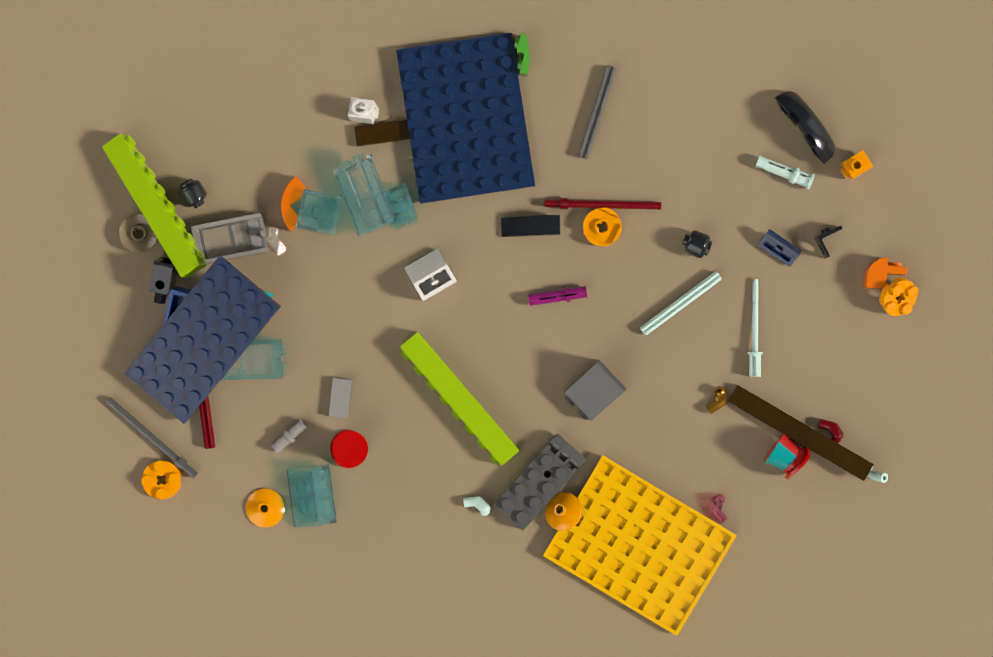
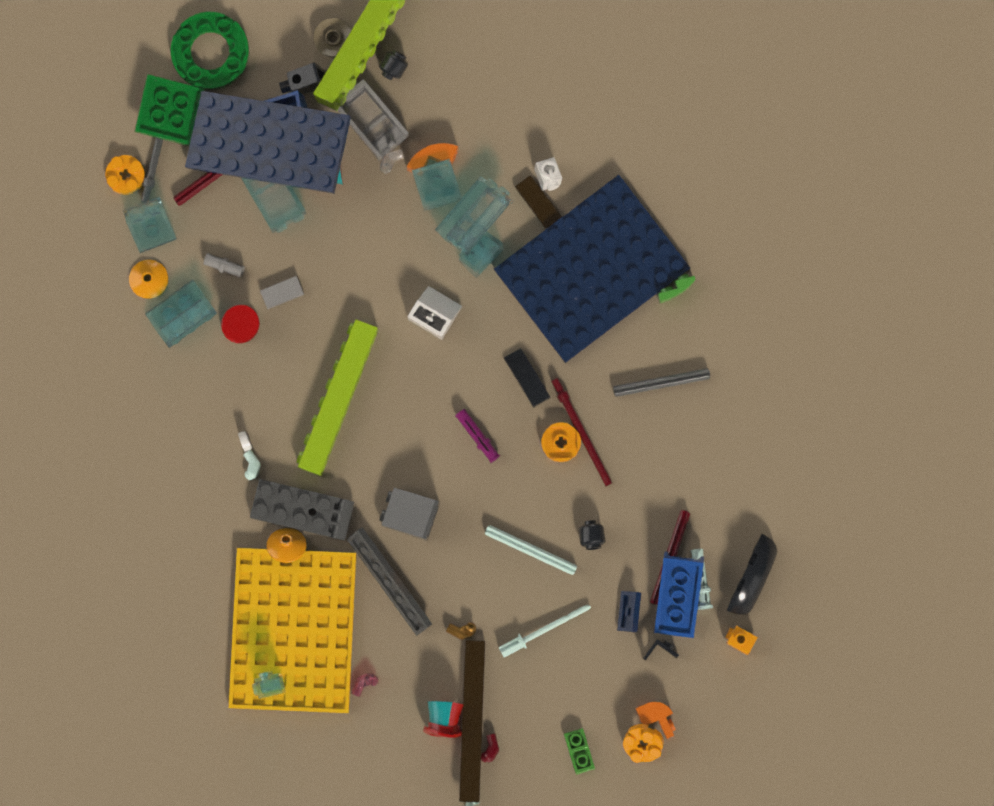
camera: 60 degrees right, 5 degrees down
(63, 347) = (209, 23): none -> green plate
(125, 412) = (168, 110): none -> green plate
(218, 481) = (149, 224): none -> clear light blue slope
(453, 499) = (244, 439): none -> white tile
(642, 439) = (389, 581): none -> dark grey plate
(679, 591) = (268, 685): none -> clear light blue brick
(751, 187) = (672, 548): none -> dark red axle
(790, 197) = (679, 596): none -> blue plate
(874, 355) = (579, 751): none -> bright green slope

